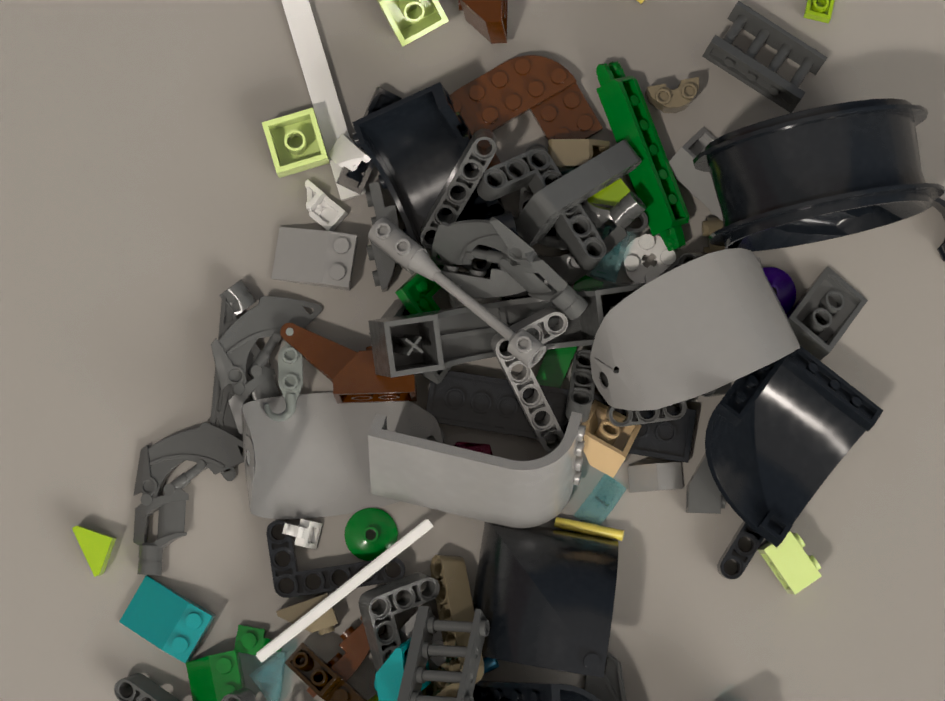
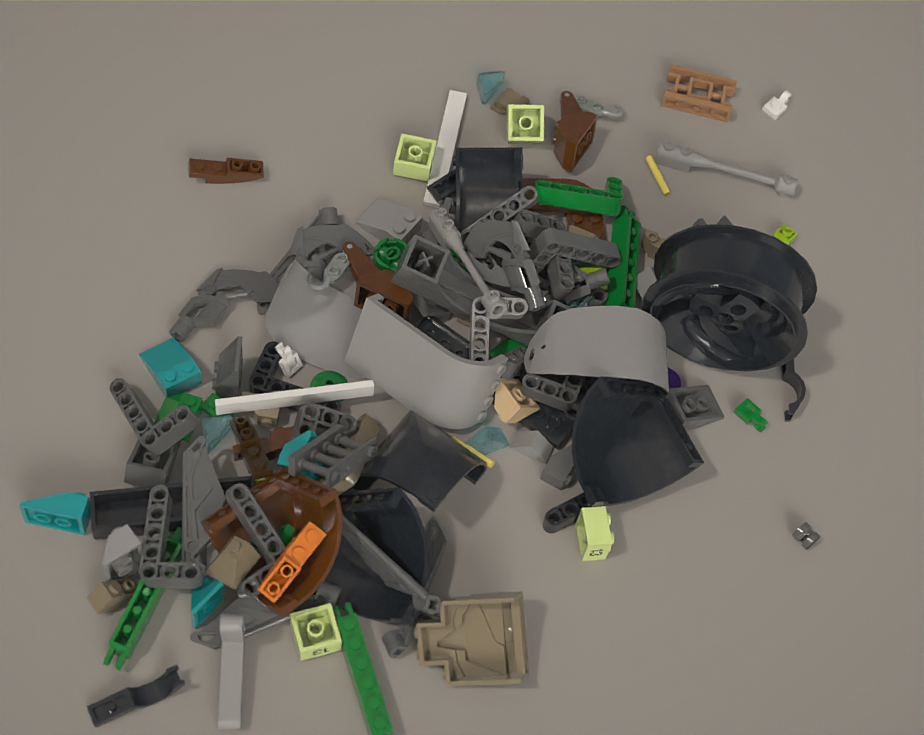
camera: 20 degrees right, 25 degrees down
(68, 301) = (227, 172): none -> reddish brown slope
(96, 548) = (154, 304): lime slope -> none
(244, 594) = (229, 370): none -> dark grey slope
(322, 208) = (409, 199): white slope -> none
(347, 154) = (443, 174): white slope -> none
(348, 315) = (388, 253): none -> green brick
(549, 90) = (582, 198): none -> green beam
(896, 280) = (750, 413): none -> green plate

